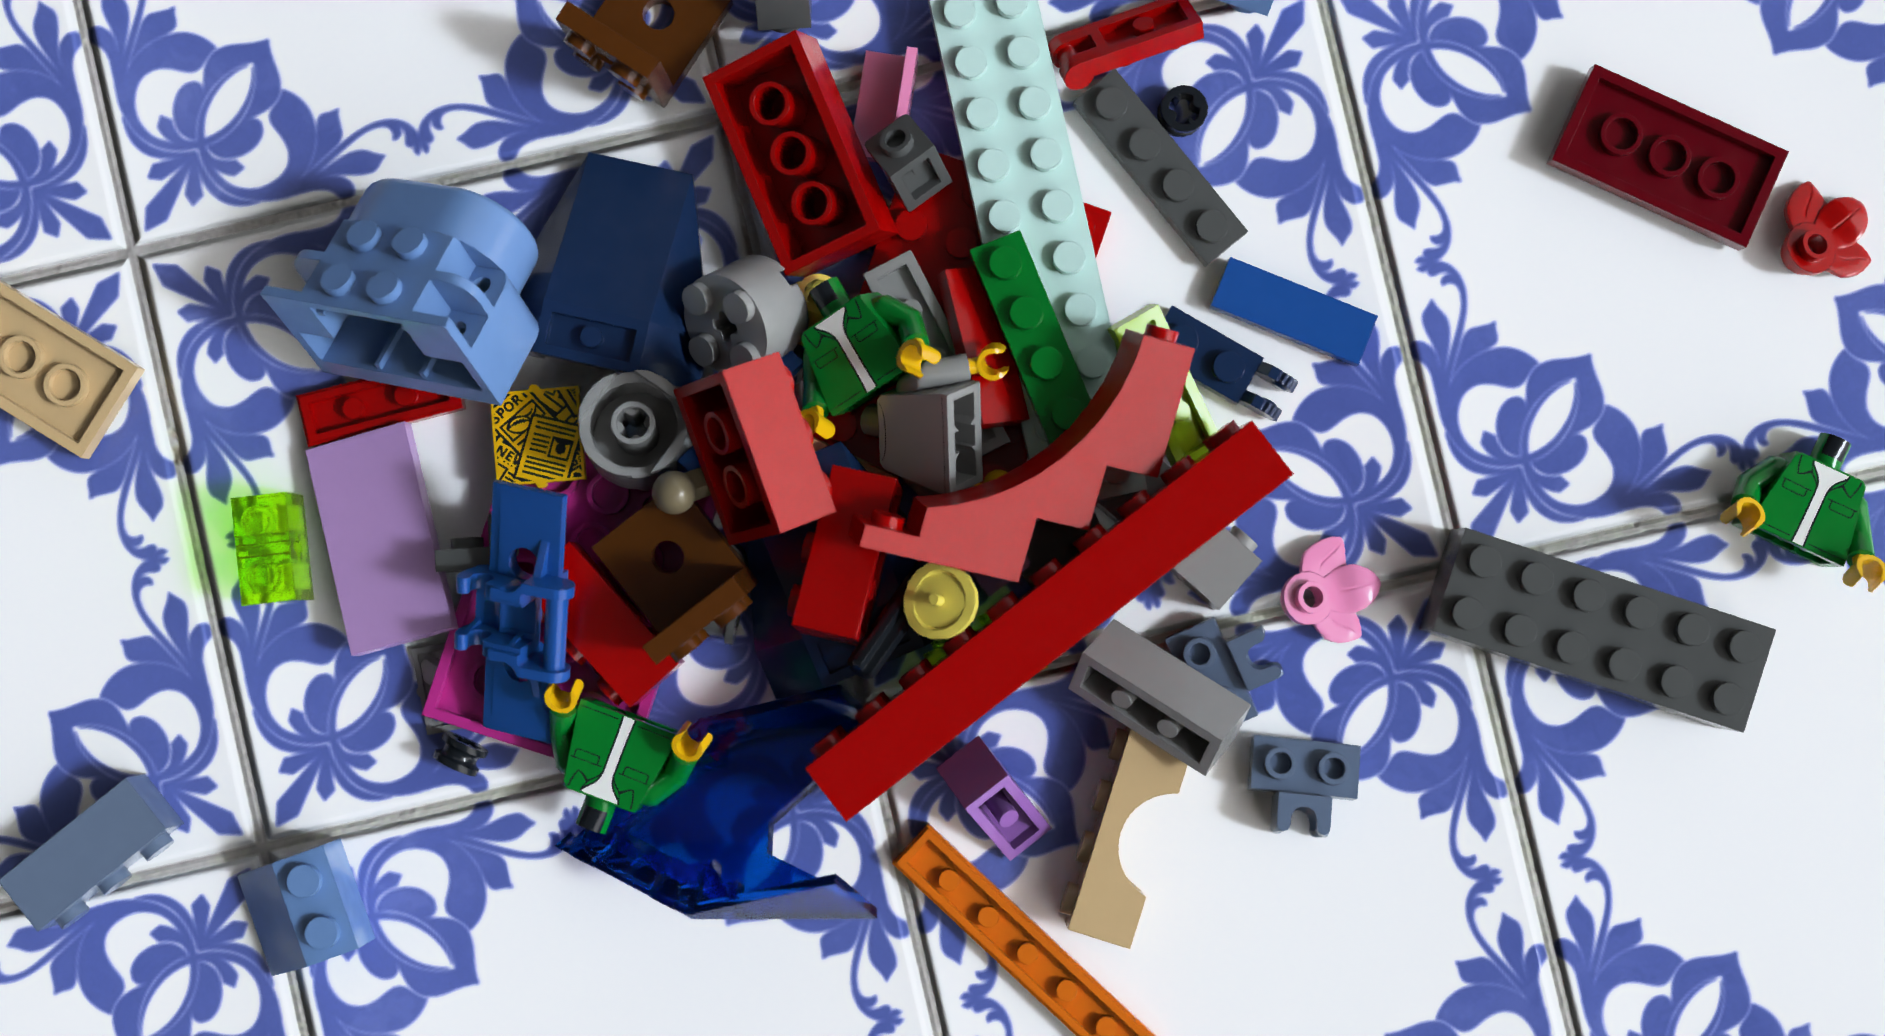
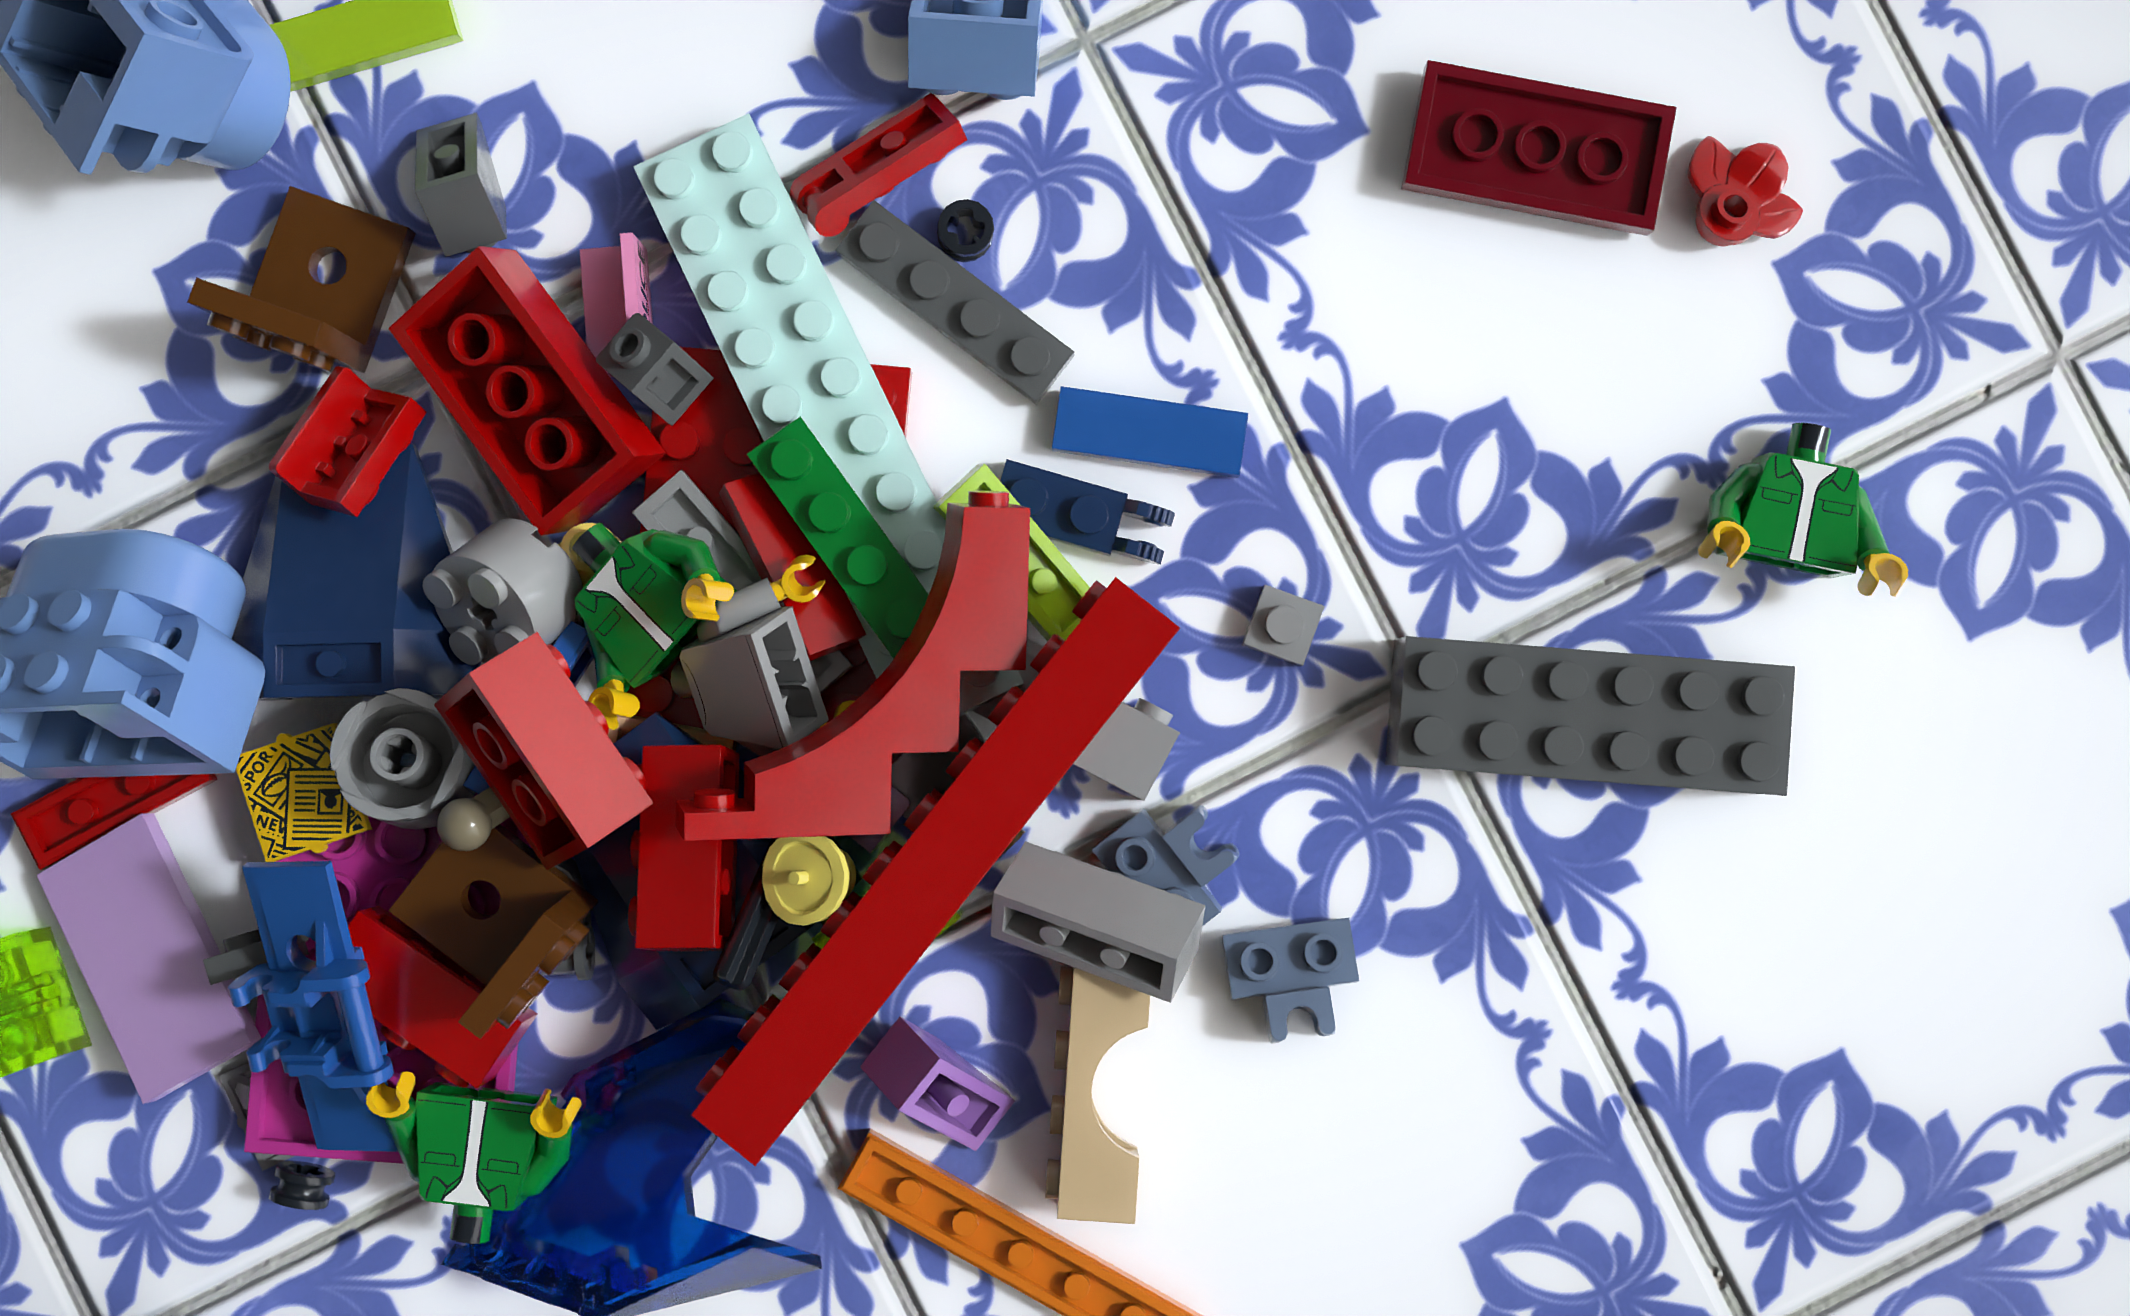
camera: 15 degrees left, 0 degrees up
(644, 162) = (346, 443): none -> red bracket
(1337, 591) = (1279, 742): bright pink plate -> none
(1363, 495) = (1283, 625): none -> light grey plate

